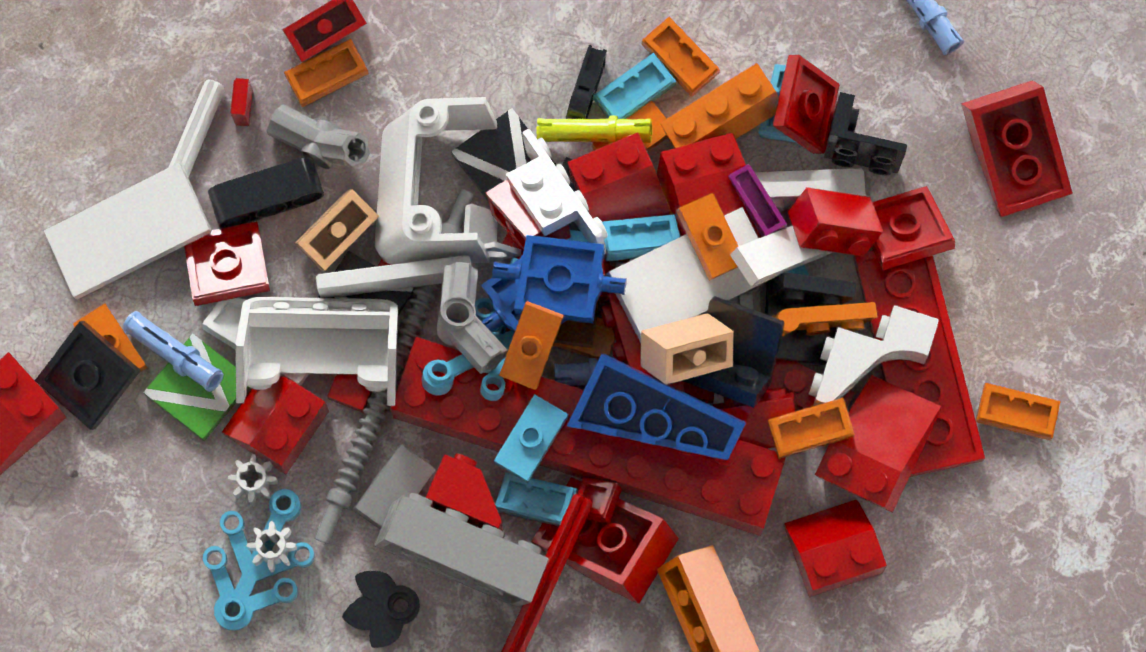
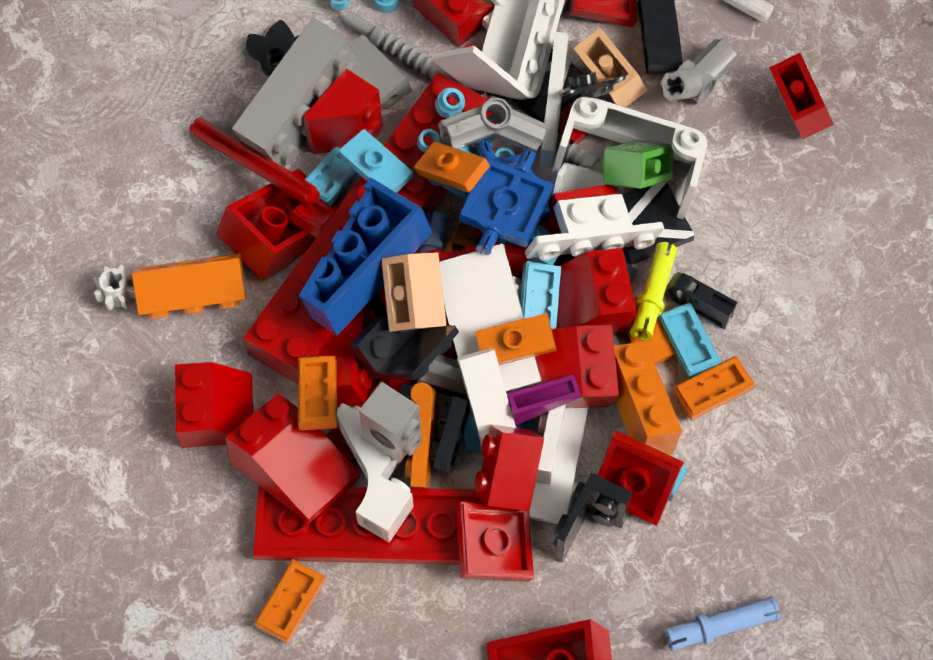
camera: 105 degrees right, 10 degrees down
(241, 102) = (746, 26): red tile -> none
(326, 73) = (760, 97): orange plate -> none
(381, 233) = (589, 86): none -> black plate
(457, 172) = (637, 164): none -> bright green brick
(842, 329) = (391, 423): none -> light grey brick

